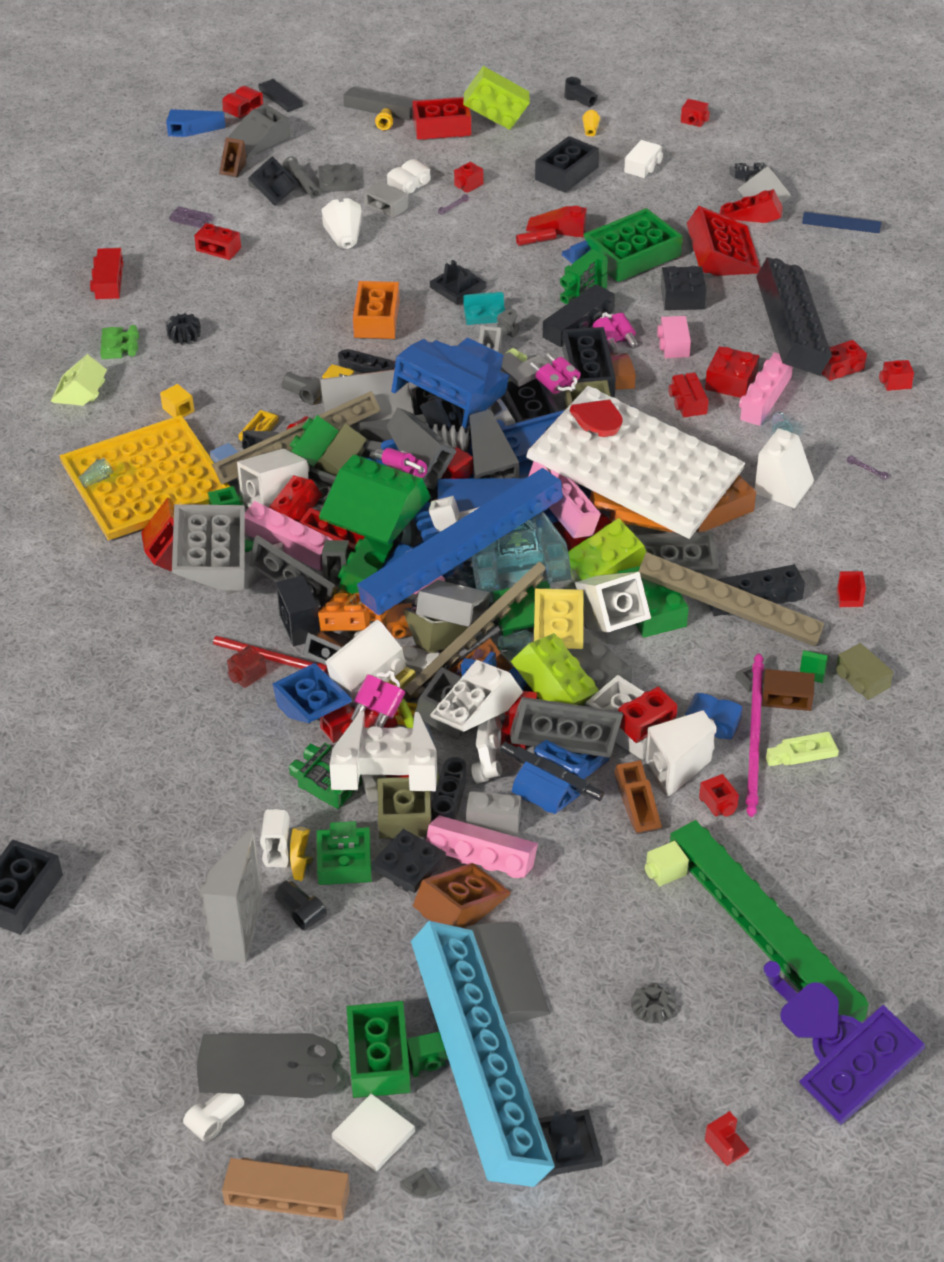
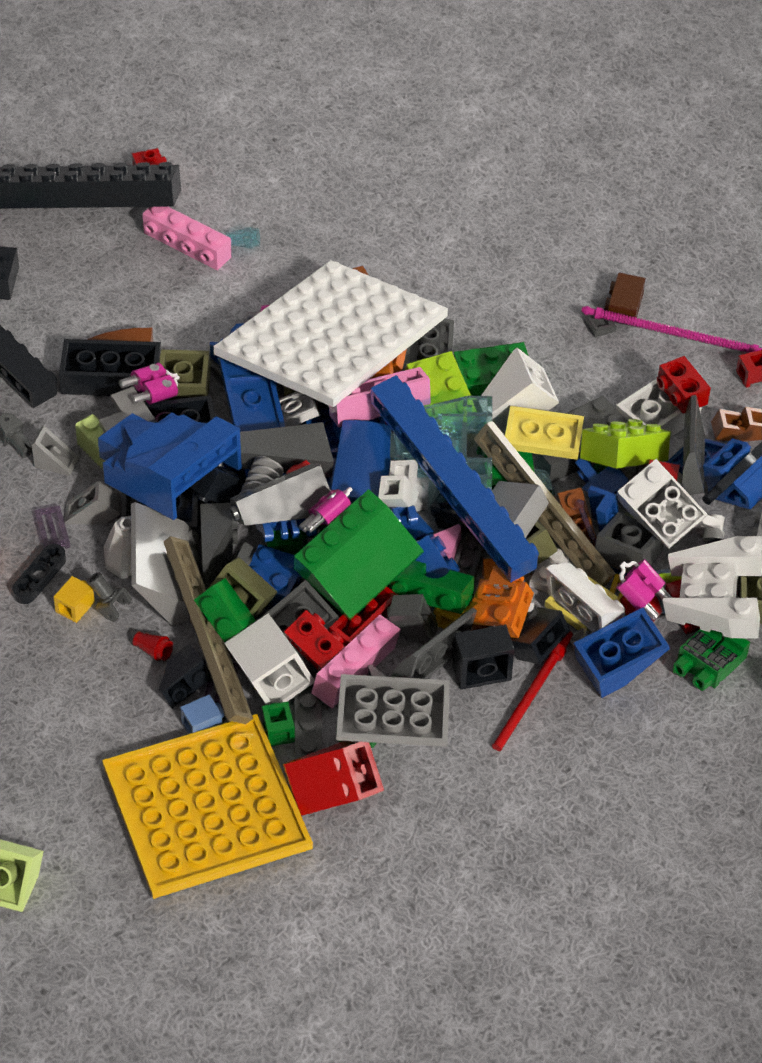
camera: 85 degrees left, 5 degrees up
(96, 472) = (209, 844): clear light blue cone -> none
(177, 401) = (72, 765): yellow brick -> none
(246, 666) = (550, 716): clear red brick -> none
(266, 425) = (132, 696): yellow tile -> none
(308, 390) = (79, 630): dark grey piece -> none
(598, 417) = (282, 339): red tile -> none
(616, 329) = (46, 340): dark pink piece -> none
(674, 337) = (74, 293): bright pink brick -> none
(680, 749) = (724, 377): white slope -> none
(688, 395) = (179, 298): red brick -> none
(724, 713) = (654, 352): blue brick -> none
(731, 372) = (152, 257): red brick -> none
(731, 599) = (516, 311): dark tan plate -> none
(774, 584) = (490, 299): black brick -> none
(783, 469) = (326, 240): white slope -> none
(802, 749) = (699, 303): yellowish green hinge -> none
(814, 663) = (592, 275): green slope -> none
(851, 589) = (500, 230): red panel -> none
(852, 460) = (305, 198): clear purple hinge -> none
(864, 671) = (607, 244): olive brick -> none
(897, 375) = (187, 137): red brick -> none

